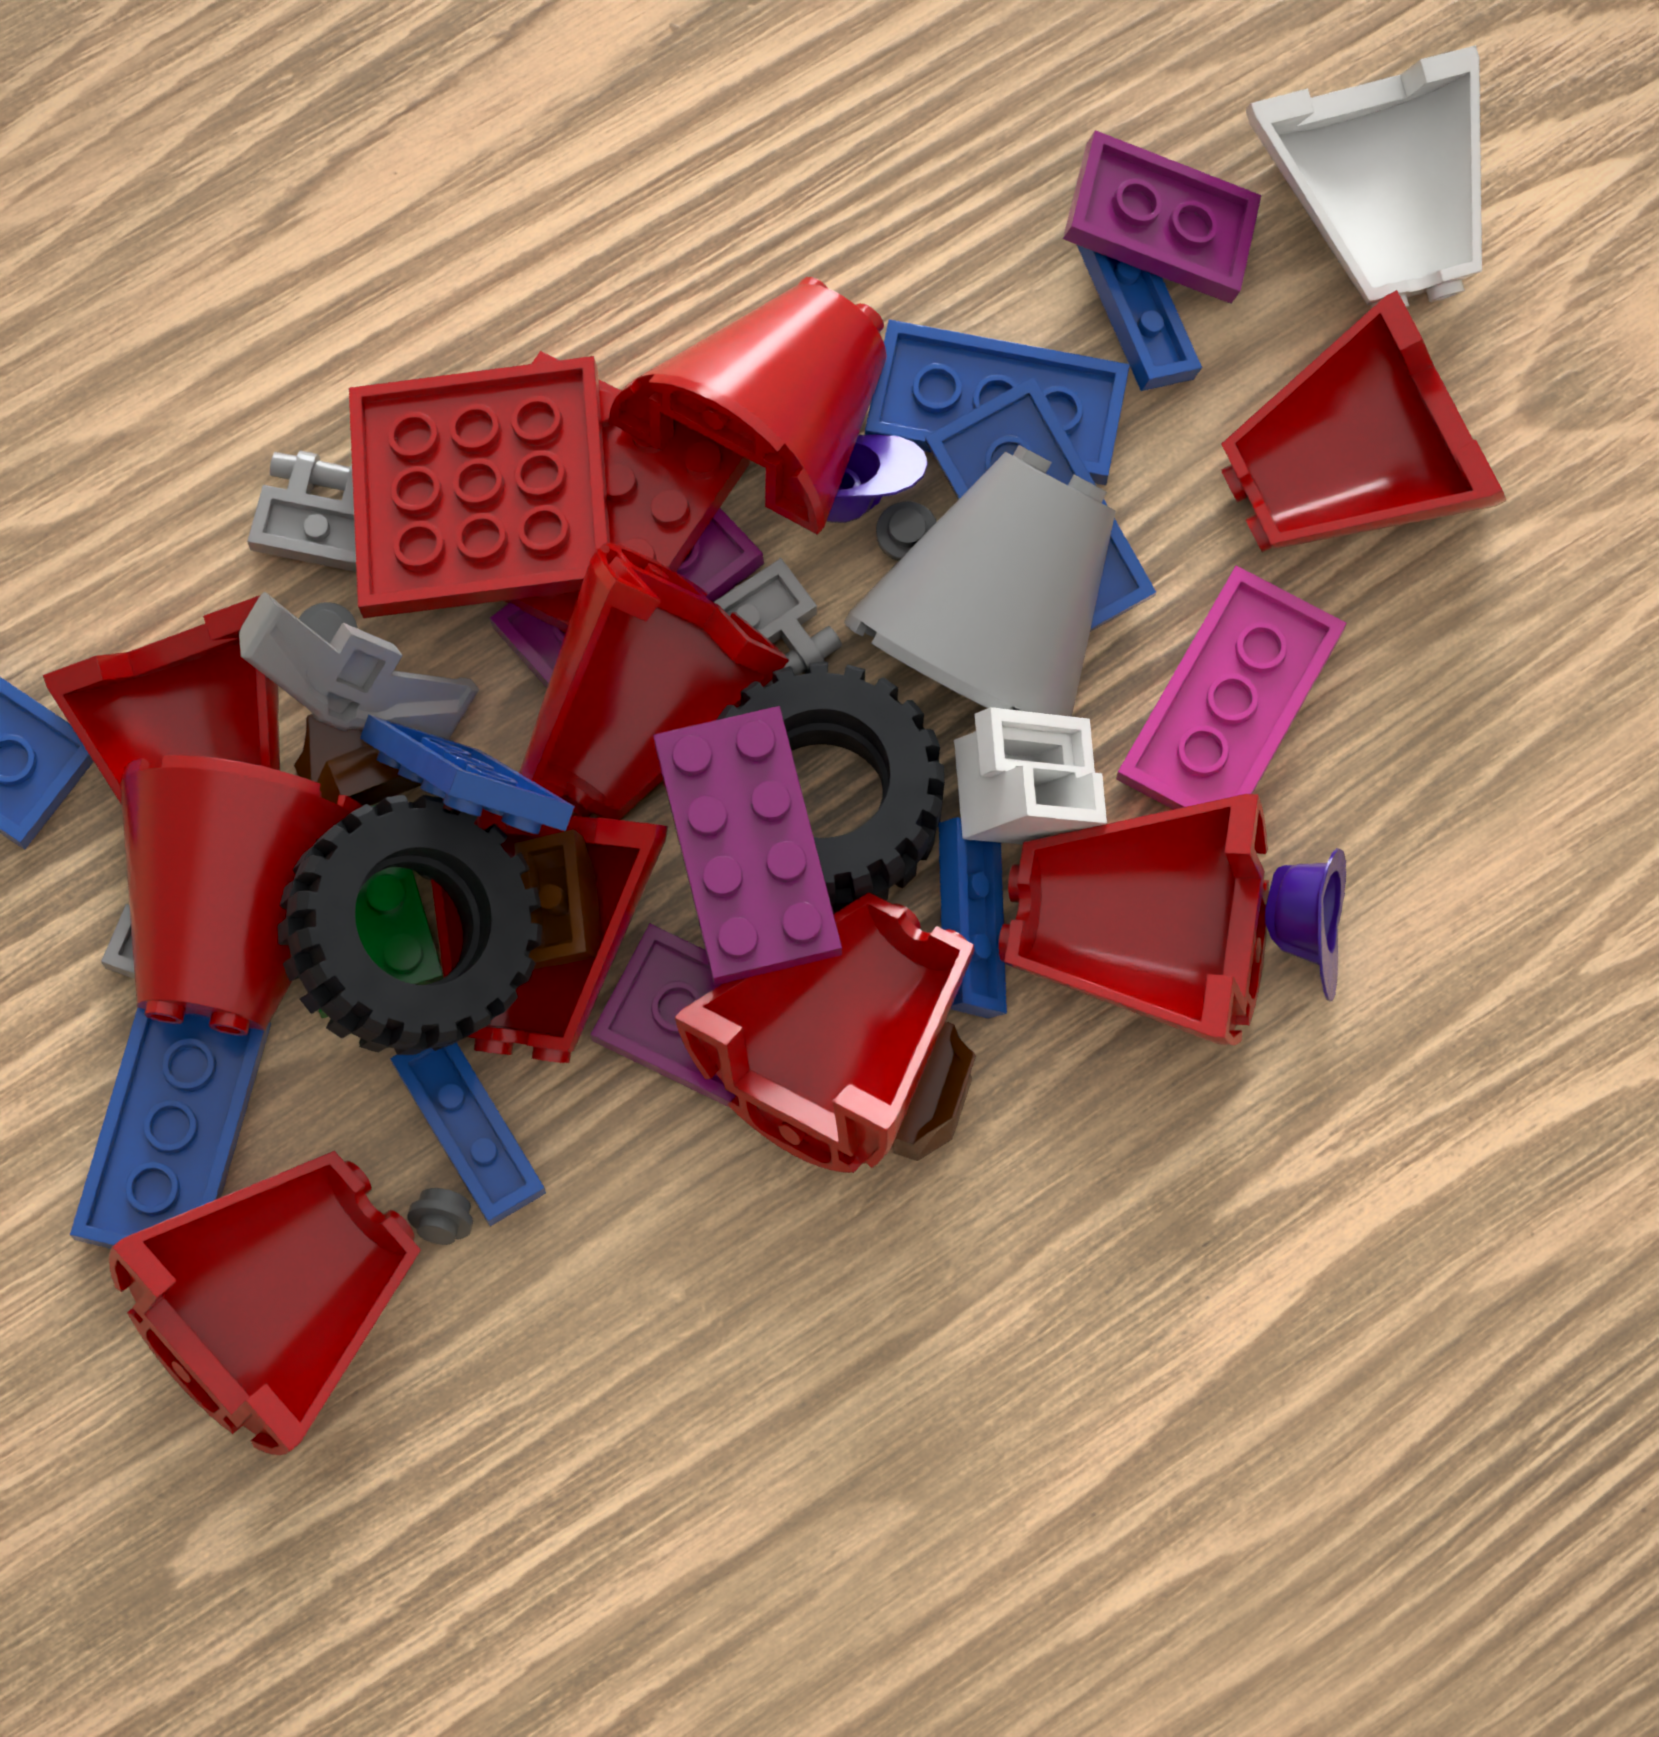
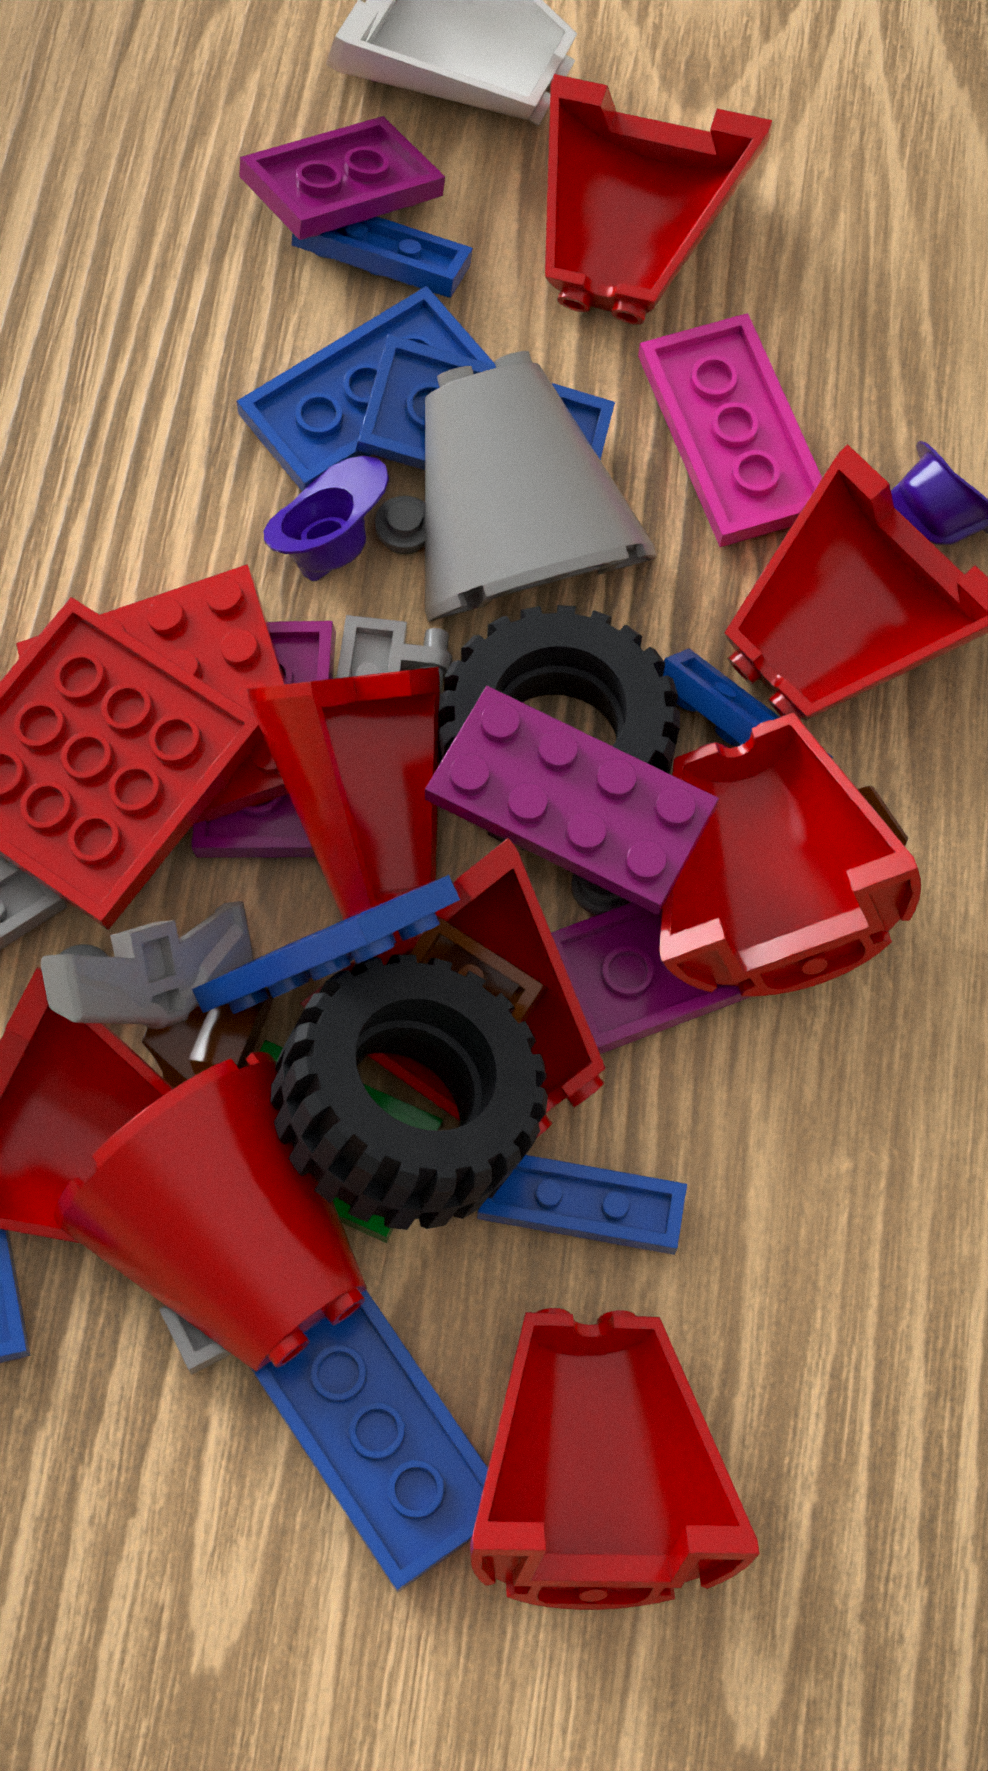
camera: 50 degrees left, 5 degrees down
(441, 1216) = (639, 1282): dark grey plate -> none
(774, 388) = (218, 492): red cone -> none
(1027, 777) = (683, 588): white plate -> none

